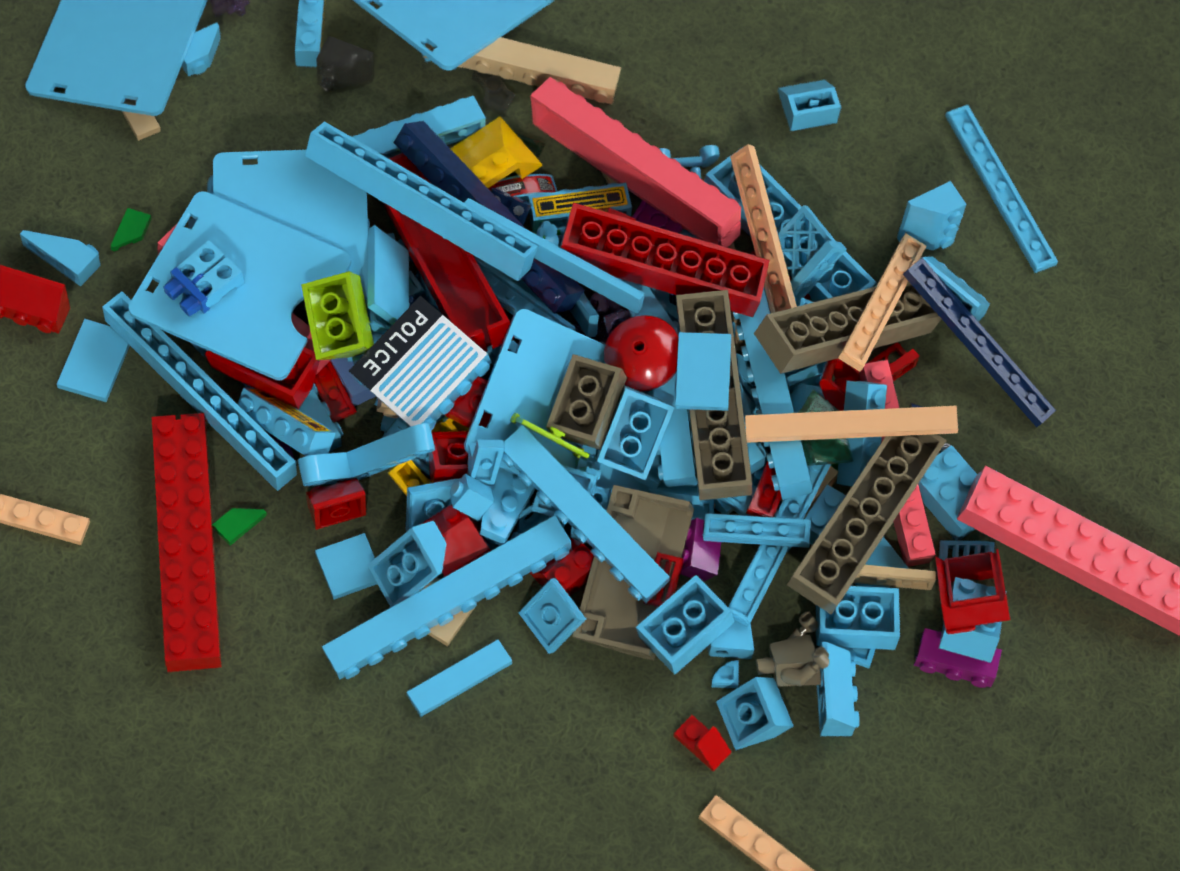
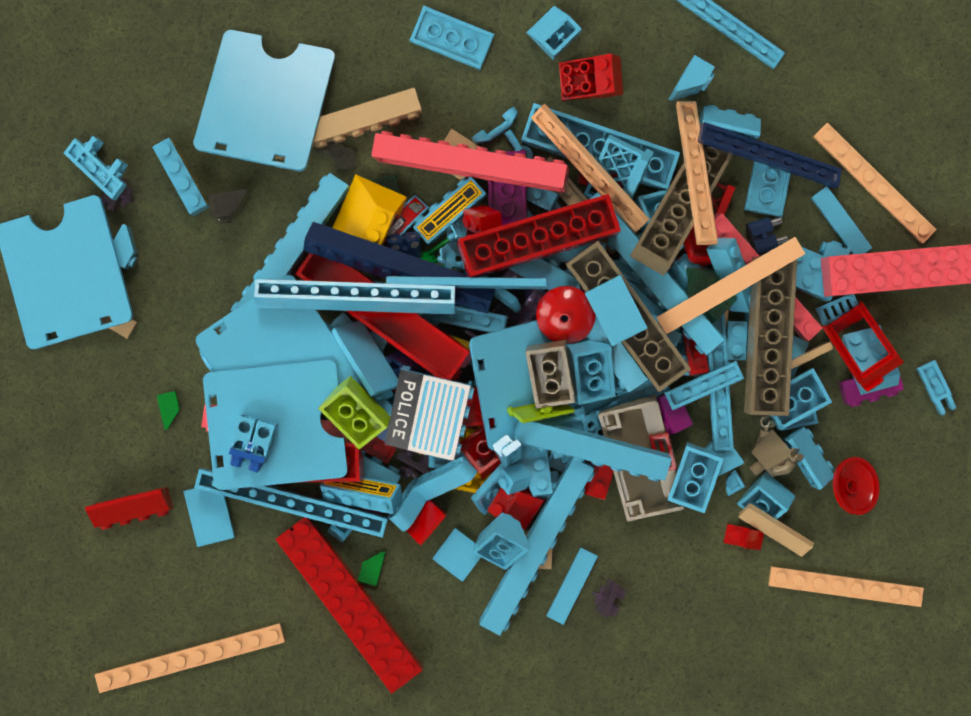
camera: 25 degrees left, 25 degrees up
(64, 254) = (143, 455): medium azure slope -> none
(230, 462) = (339, 533): none -> medium azure slope
(358, 431) = (421, 466): none -> hips
(505, 709) = (606, 598): none -> hips
(552, 615) = (606, 515): medium azure tile -> none
(693, 52) = (451, 37): none -> medium azure tile
(746, 752) = (776, 529): none -> tan tile
(824, 167) = (591, 77): none -> red slope
(884, 754) = (856, 485): none -> red dish
(957, 383) = (767, 190): none -> medium azure tile
(1021, 453) = (840, 221): none -> medium azure tile
(1038, 704) = (936, 386): none -> medium azure hinge
(1086, 446) = (874, 183): none -> light nougat plate

